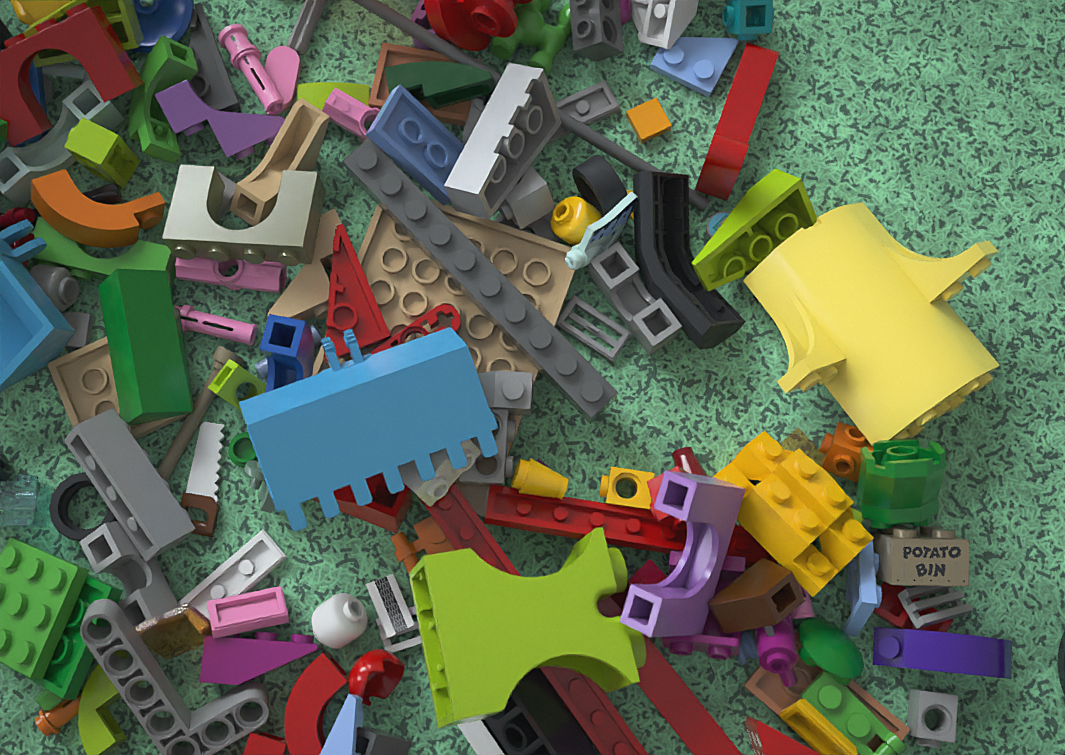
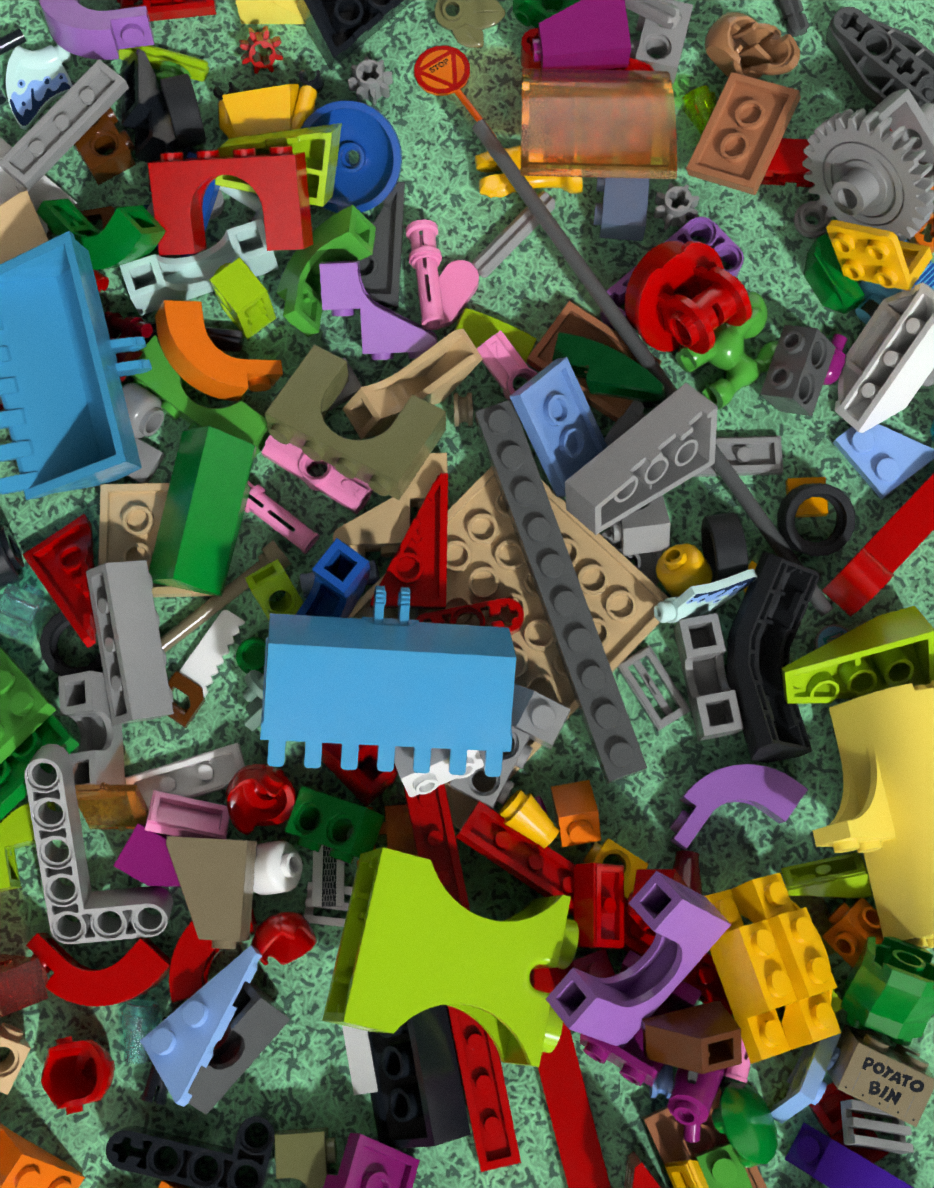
camera: 25 degrees right, 0 degrees up
(43, 449) = (62, 569): none -> red wing
(296, 656) = (216, 886): none -> dark tan slope
(301, 566) = (259, 797): none -> red cap
(333, 168) = (463, 409): none -> dark tan bush
(376, 560) = (335, 821): none -> green brick
(575, 458) = (576, 813): none -> orange brick
(629, 524) = (599, 905): none -> red slope
(686, 121) = (844, 519): none -> black tyre
(710, 370) = (751, 784): none -> medium lavender arch
(806, 417) = (829, 877): none -> lime slope

